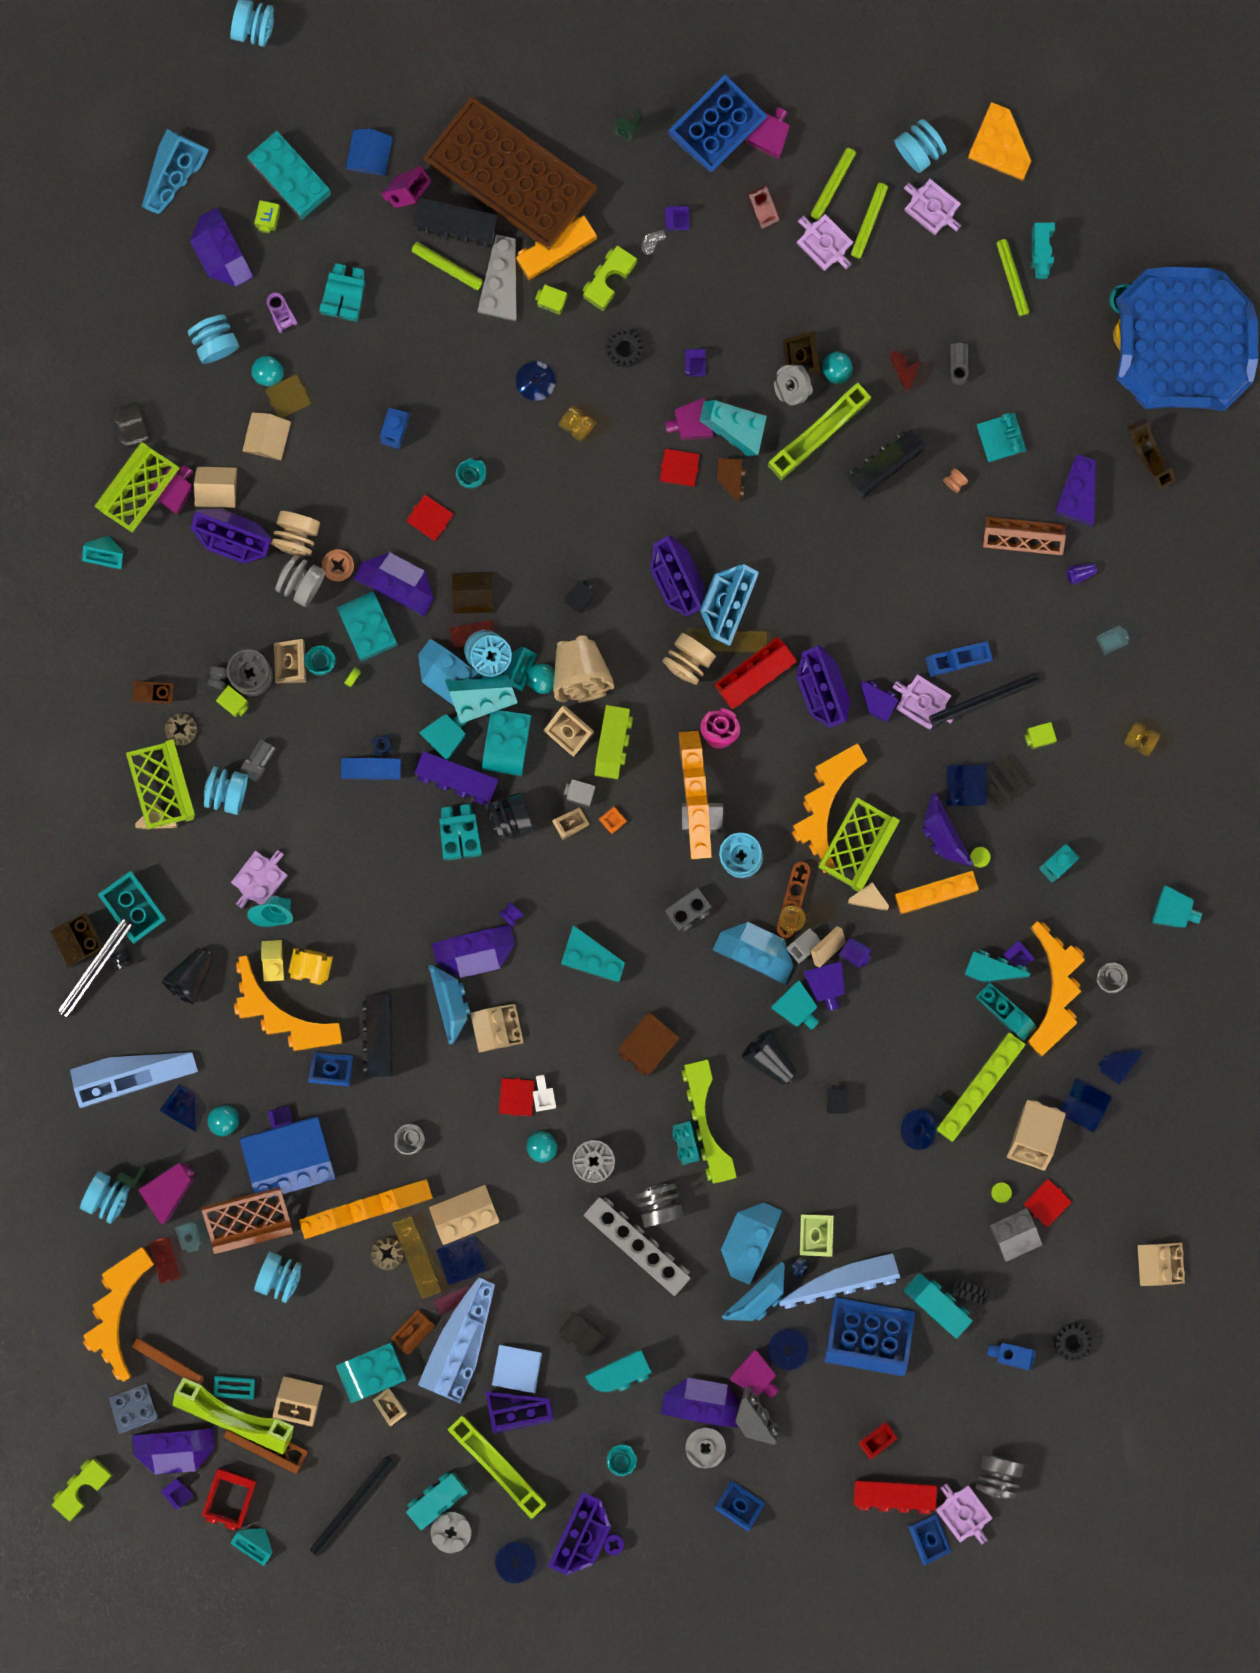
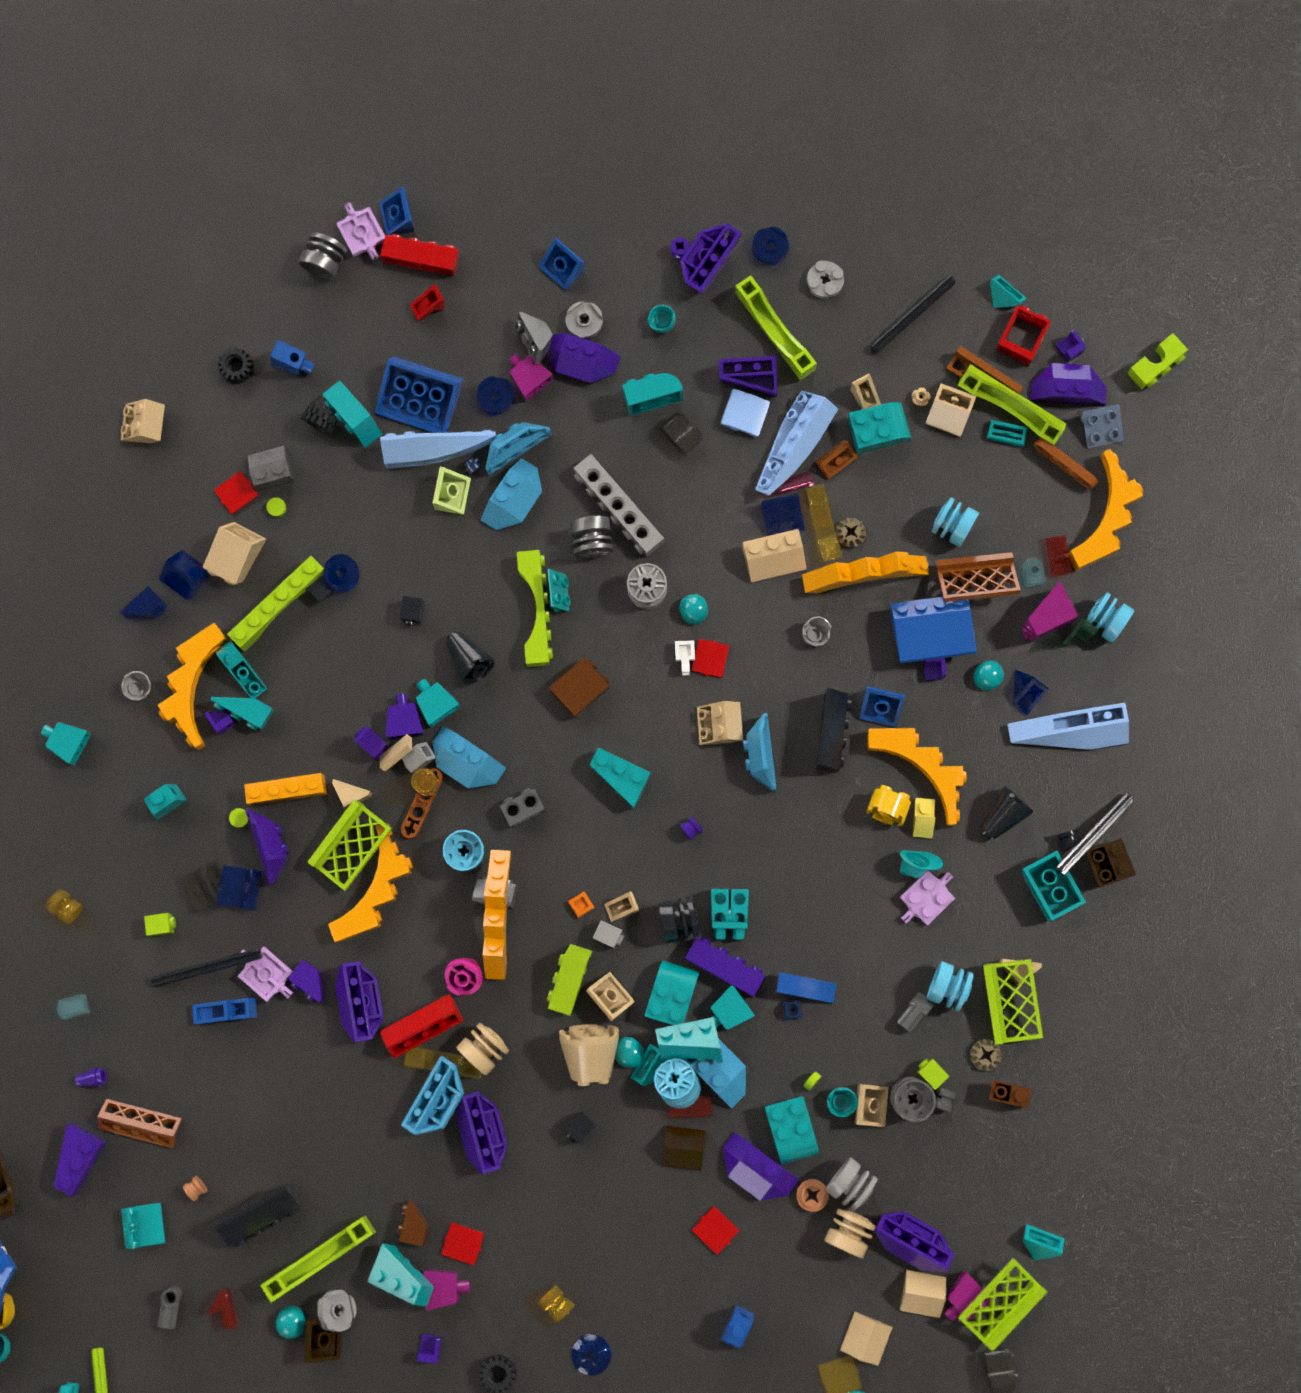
camera: 170 degrees left, 5 degrees down
(331, 1419) = (920, 401): none -> tan plate
(436, 1500) = (834, 307): teal wedge -> none
(471, 473) = (668, 1268): teal hair -> none
(475, 951) = (730, 798): dark purple wedge -> none

